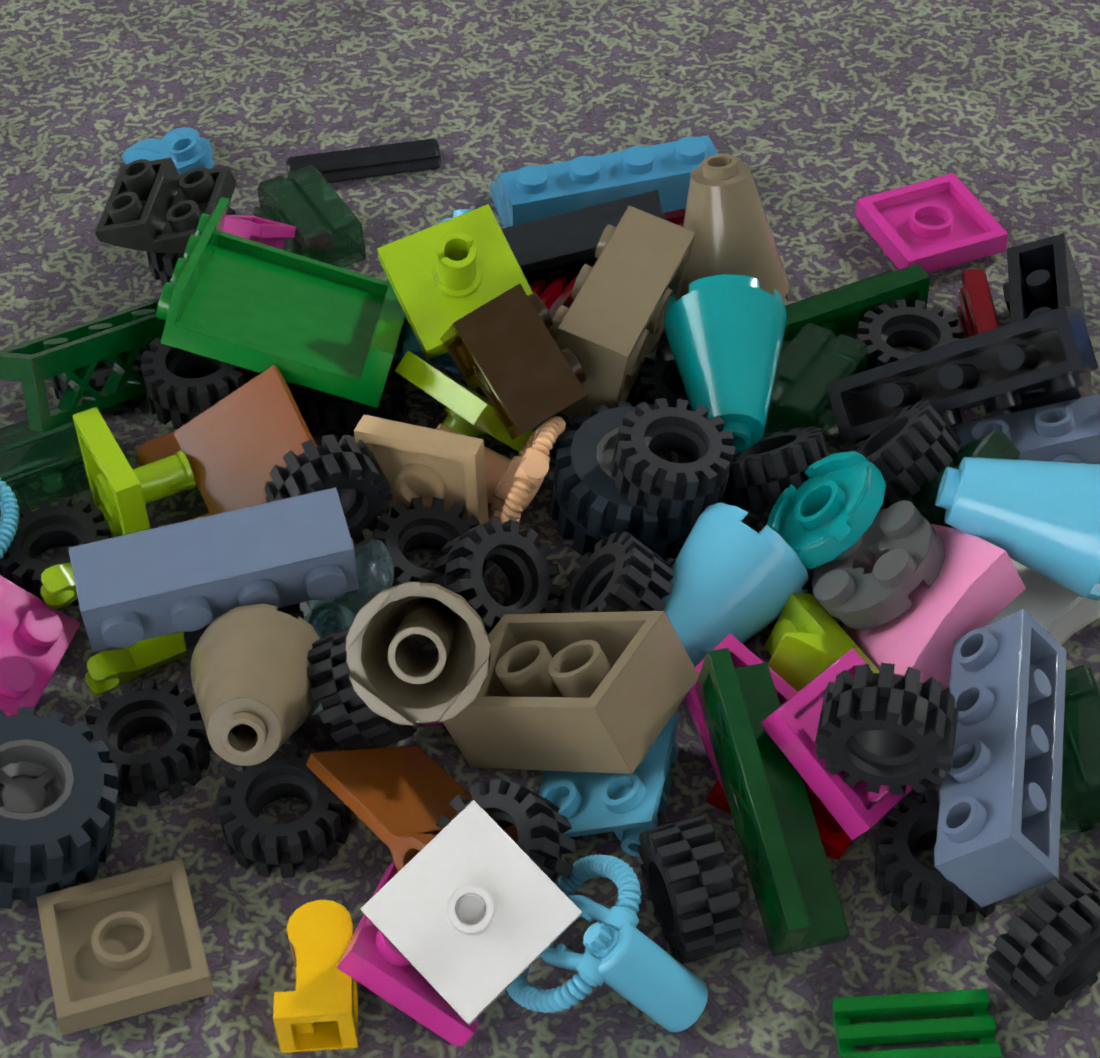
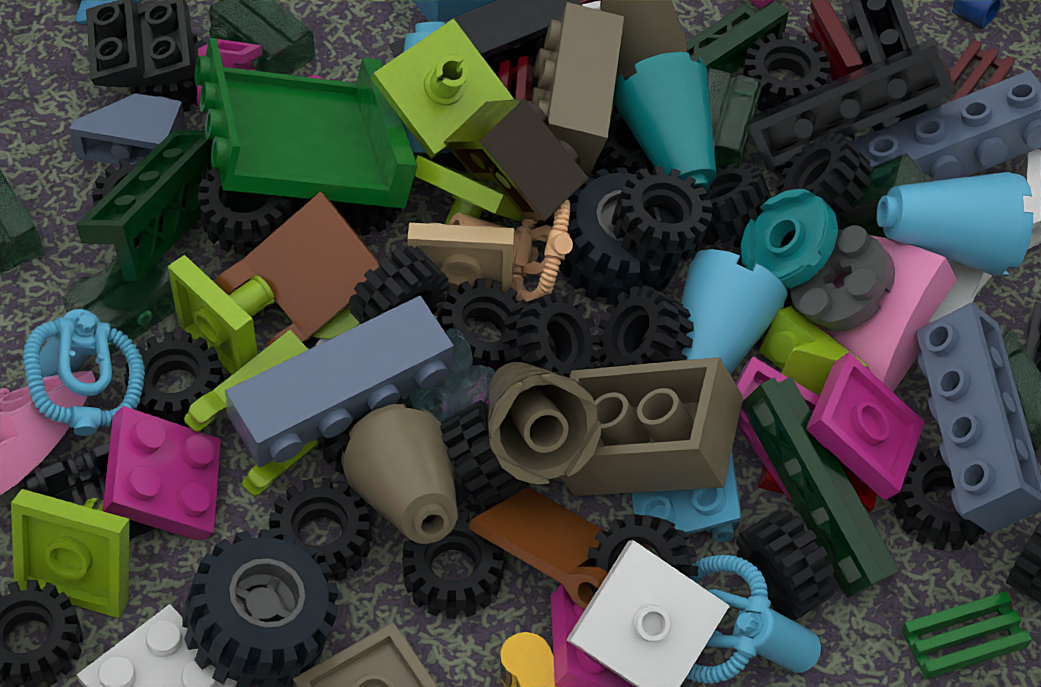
camera: 20 degrees left, 10 degrees up
(110, 287) = (126, 128): none -> sand blue slope
(887, 729) = (905, 419): black tyre -> none

